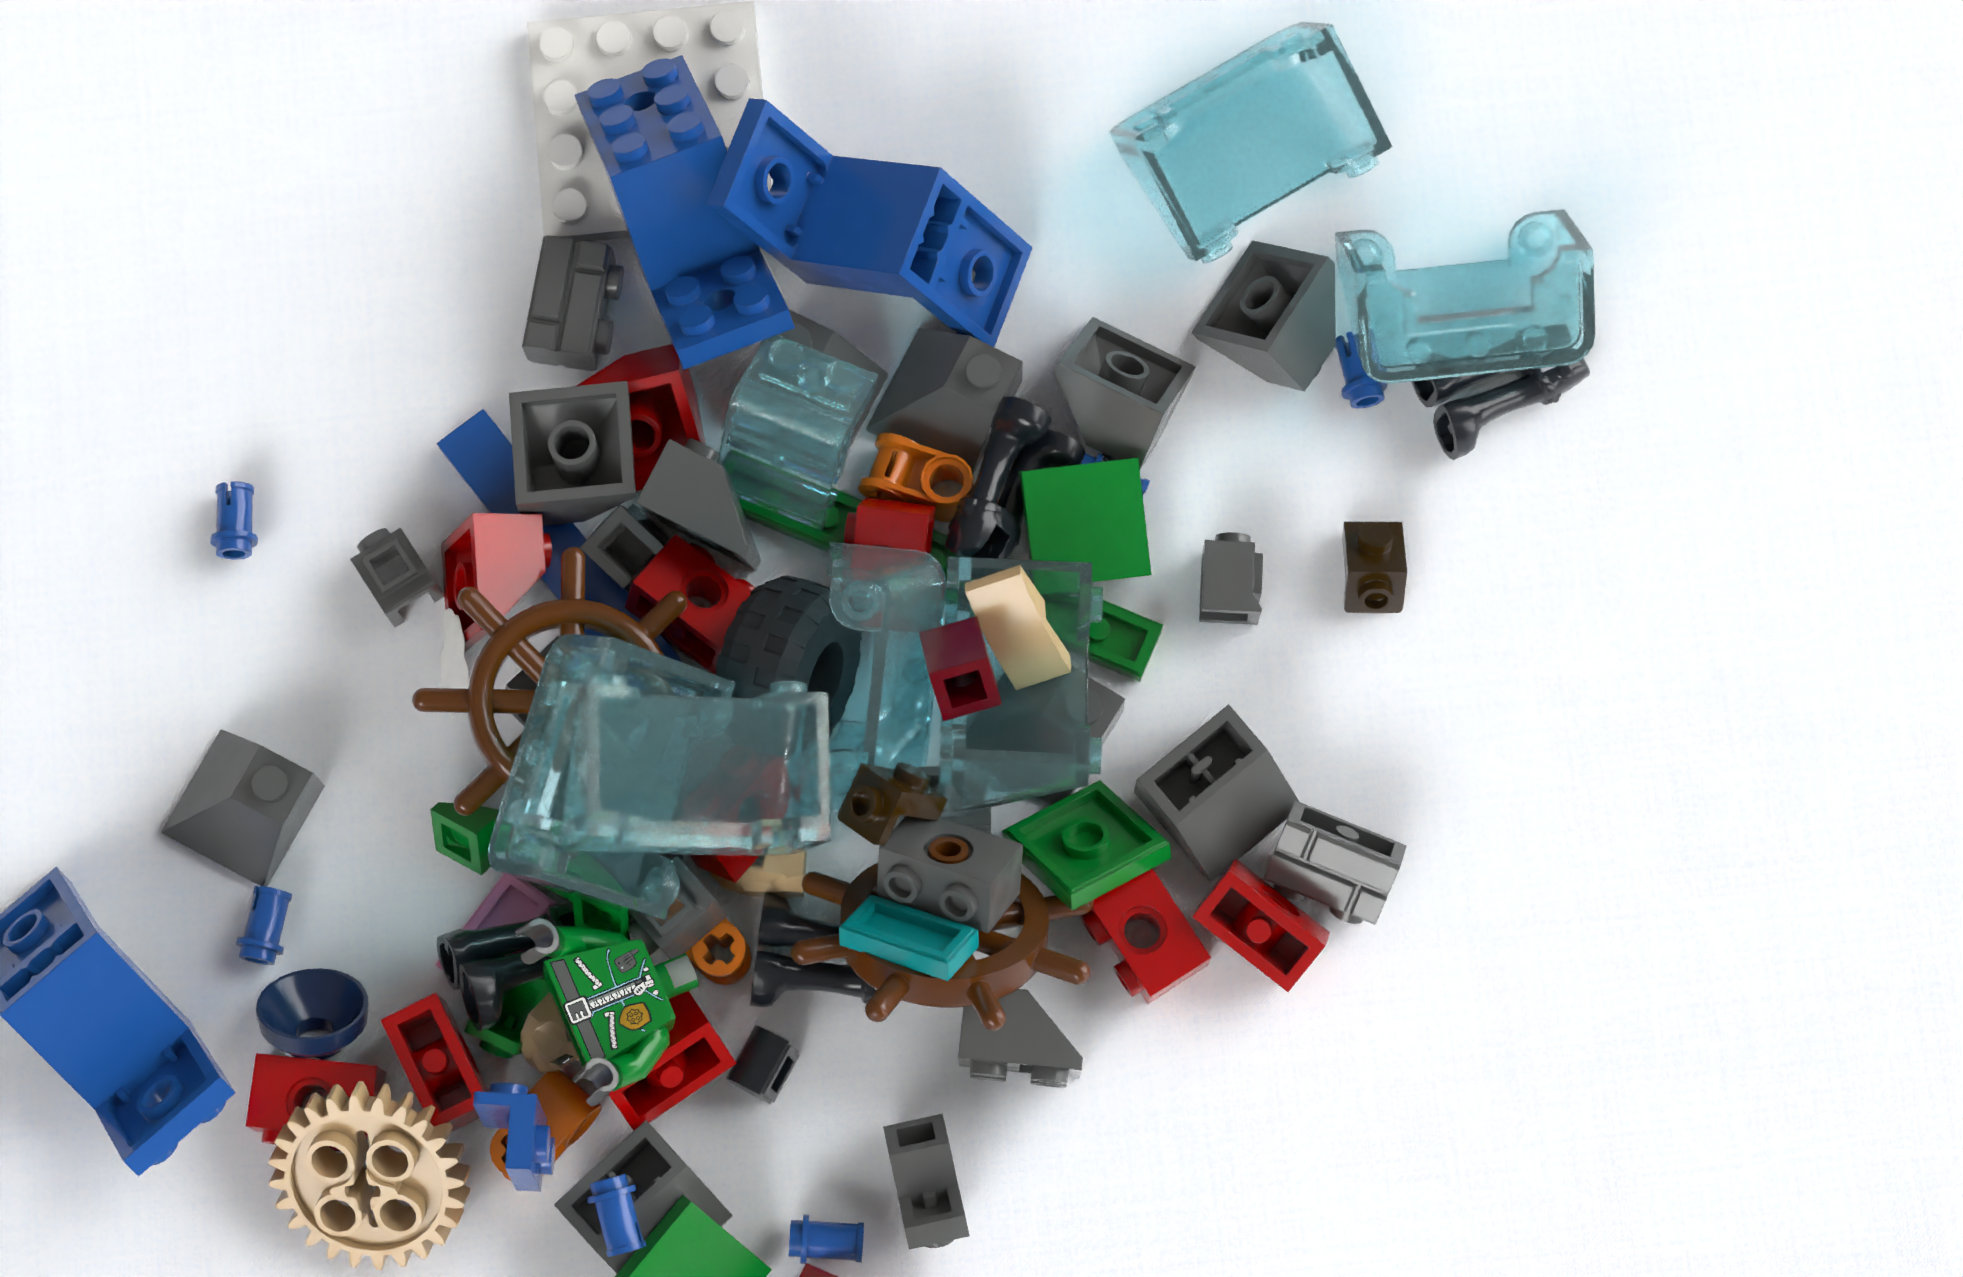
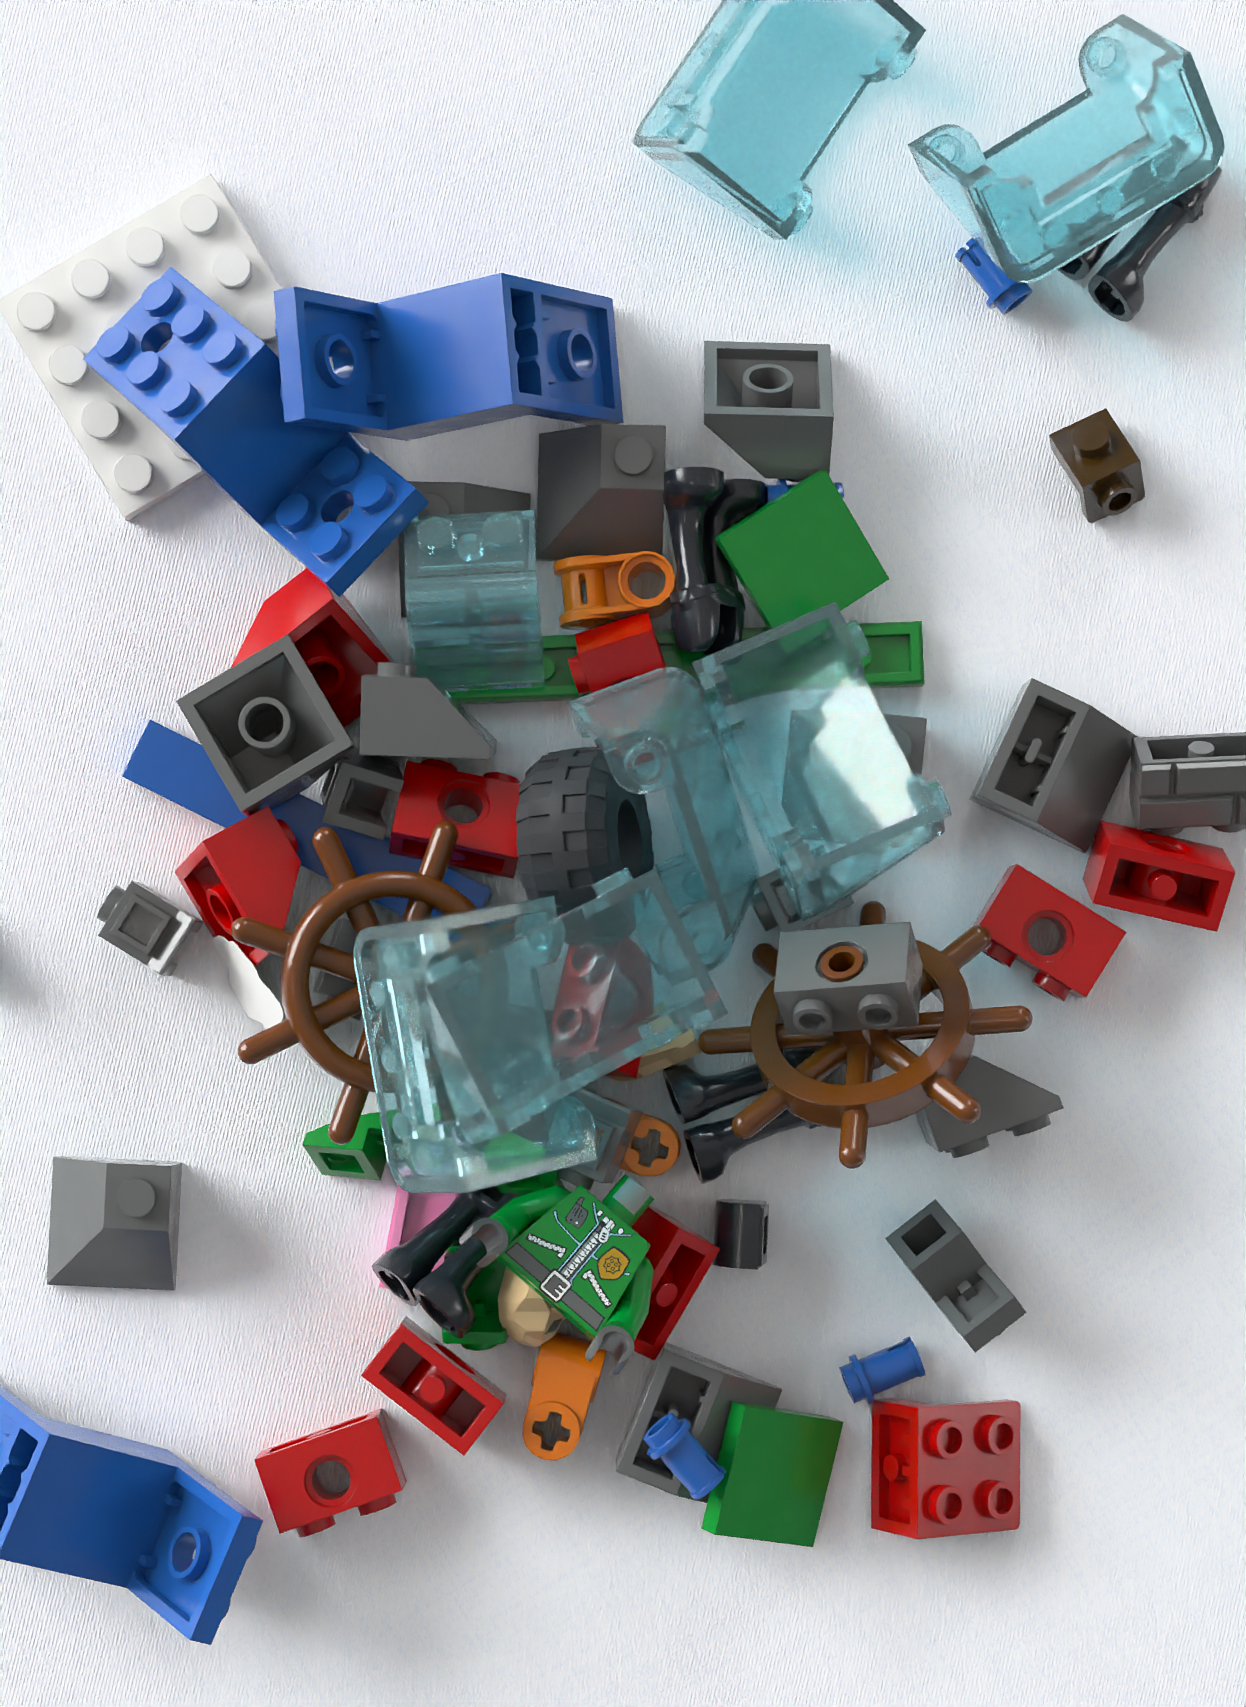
camera: 25 degrees left, 10 degrees up
(264, 926) = (195, 1328): blue pin -> none
(309, 1002) = (277, 1377): dark blue piece -> none
(317, 1176) = (456, 1498): tan gear -> none
(529, 1138) = (569, 1431): blue bracket -> none
(571, 303) = (185, 572): dark grey brick -> none
(884, 794) = (755, 936): dark brown bracket -> none
(909, 937) = (843, 1065): teal tile -> none
(960, 668) = (756, 762): dark red brick -> none
(1017, 627) = (794, 702): tan slope -> none
(1088, 845) = (958, 883): green tile -> none
(1230, 580) = (967, 546): dark grey window -> none
(1275, 314) = (886, 255): dark grey slope -> none

